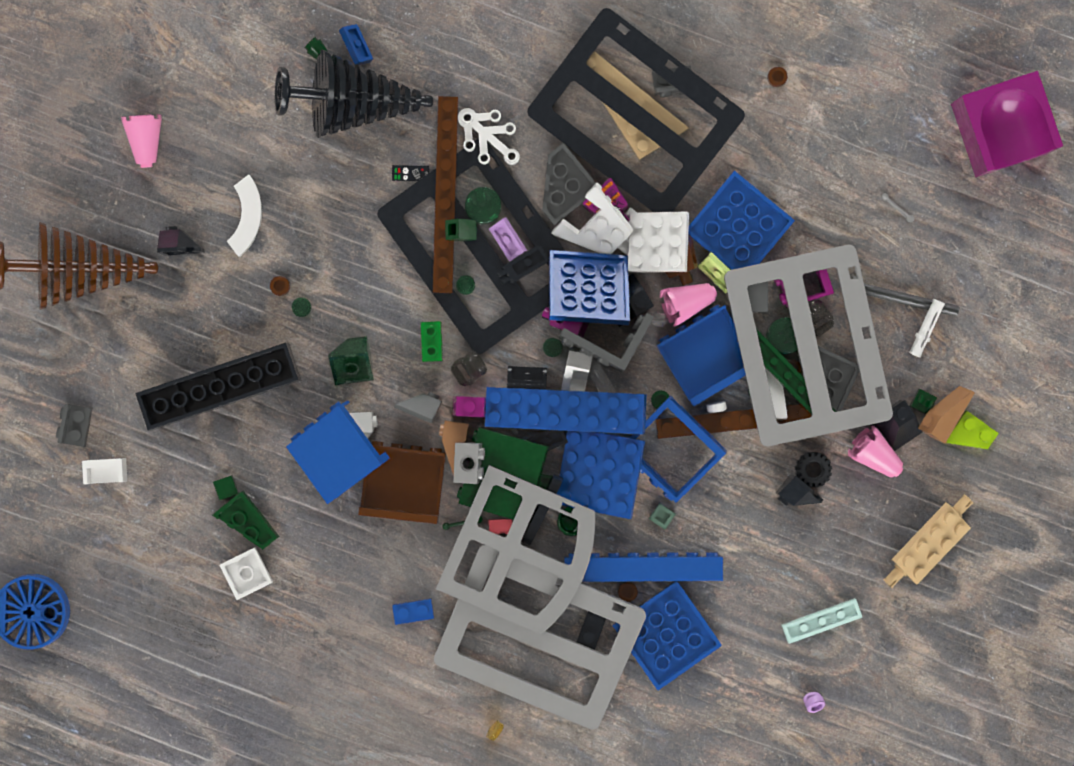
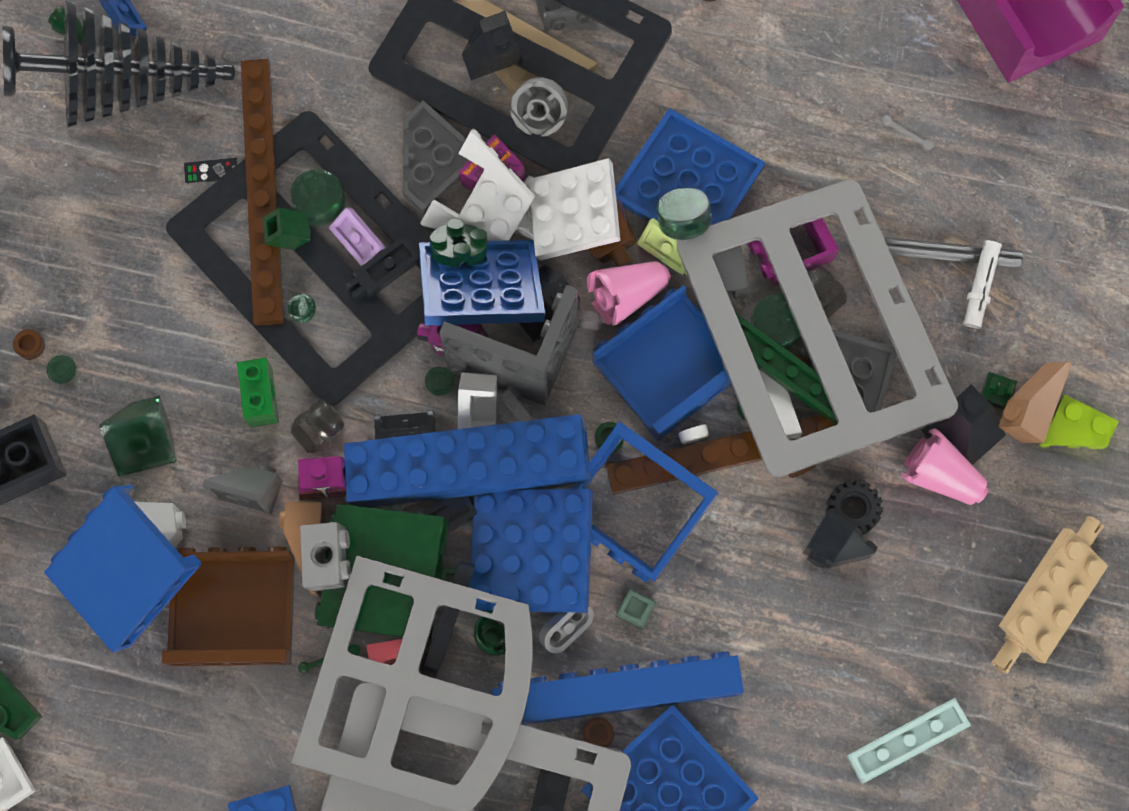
camera: 10 degrees left, 15 degrees down
(485, 134) = (315, 104): white plant -> none
(579, 247) = (458, 243): none -> dark green plate
(613, 525) = (566, 629): none -> light grey plate
(616, 110) = (491, 47): none -> black slope
(644, 163) = (539, 106): none -> light grey cylinder
(732, 255) = (684, 213): none -> clear green head

